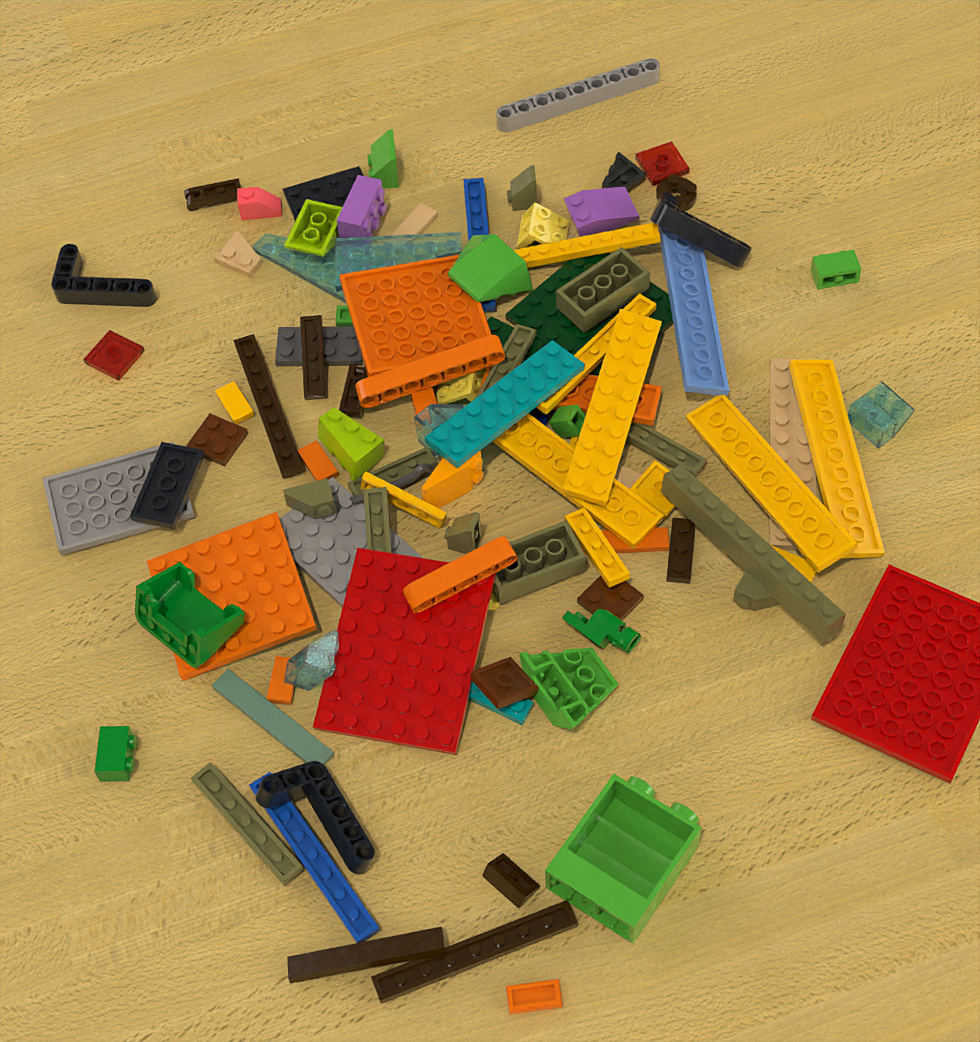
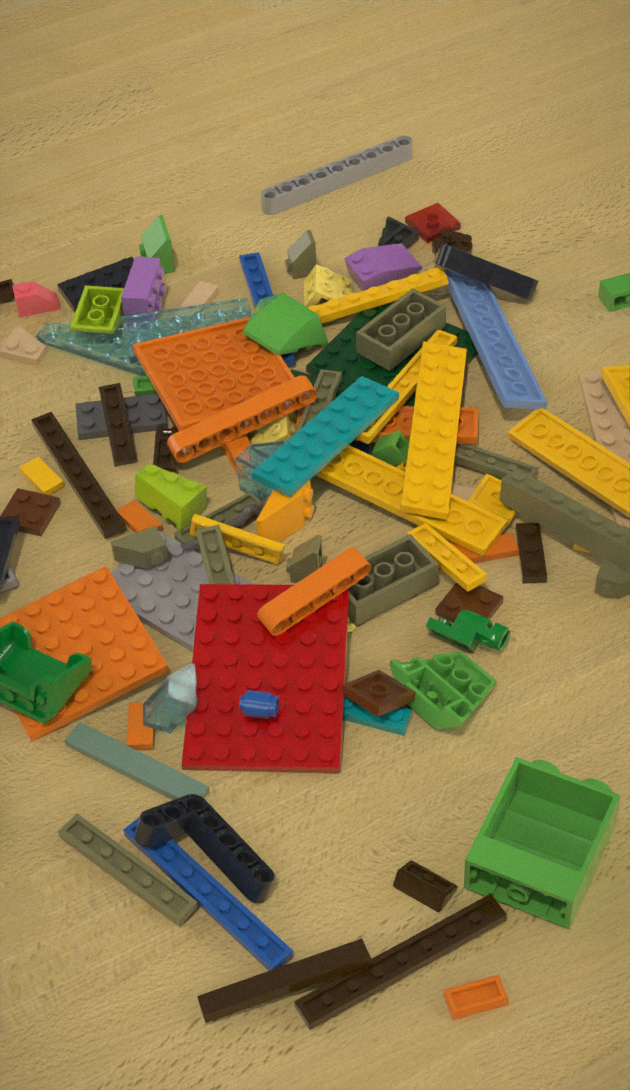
camera: 10 degrees left, 10 degrees down
(390, 681) = (259, 704): none -> blue brick

